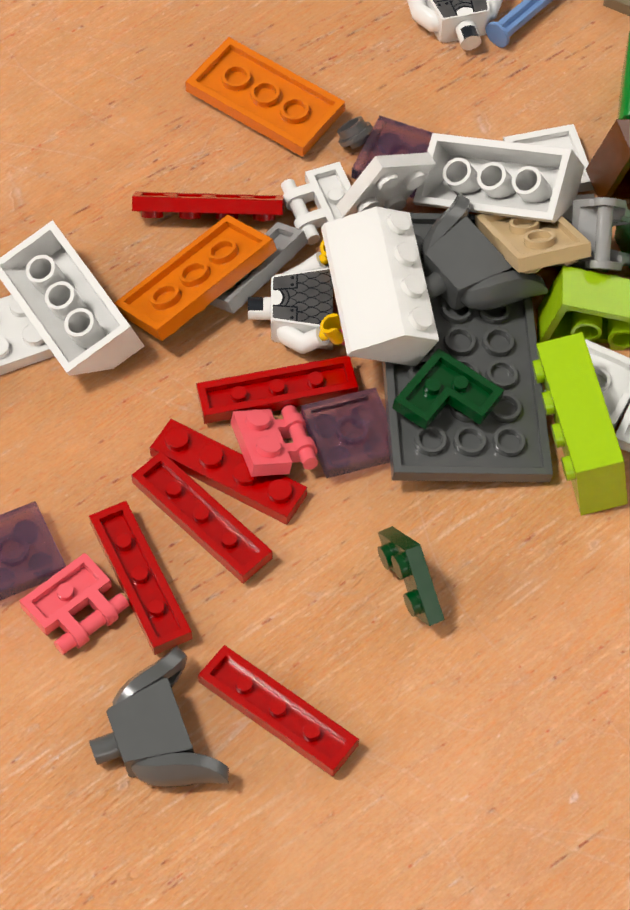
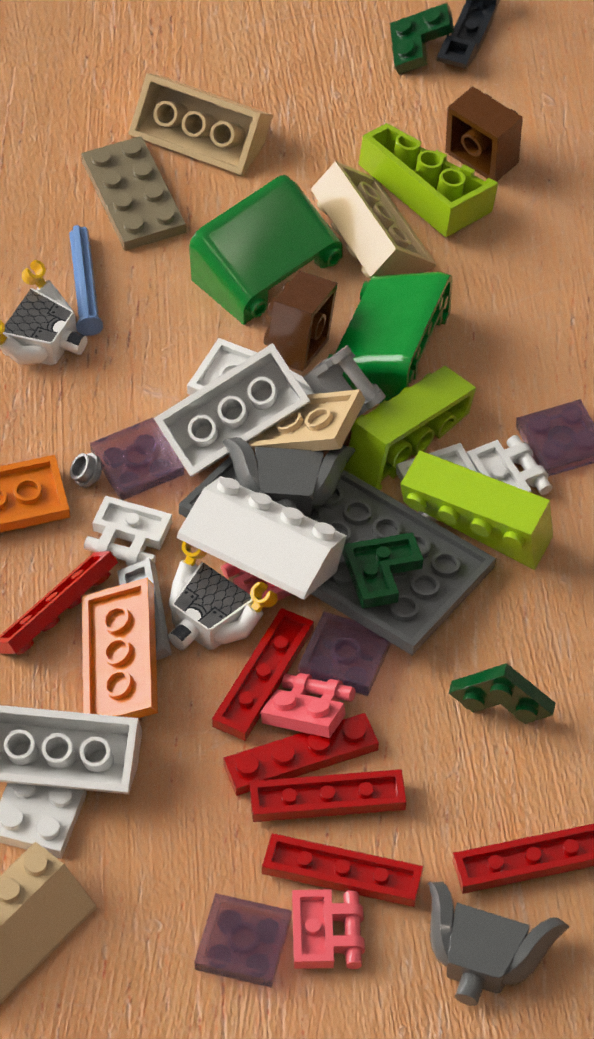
camera: 50 degrees left, 5 degrees down
(387, 182) = (171, 479): white plate -> none

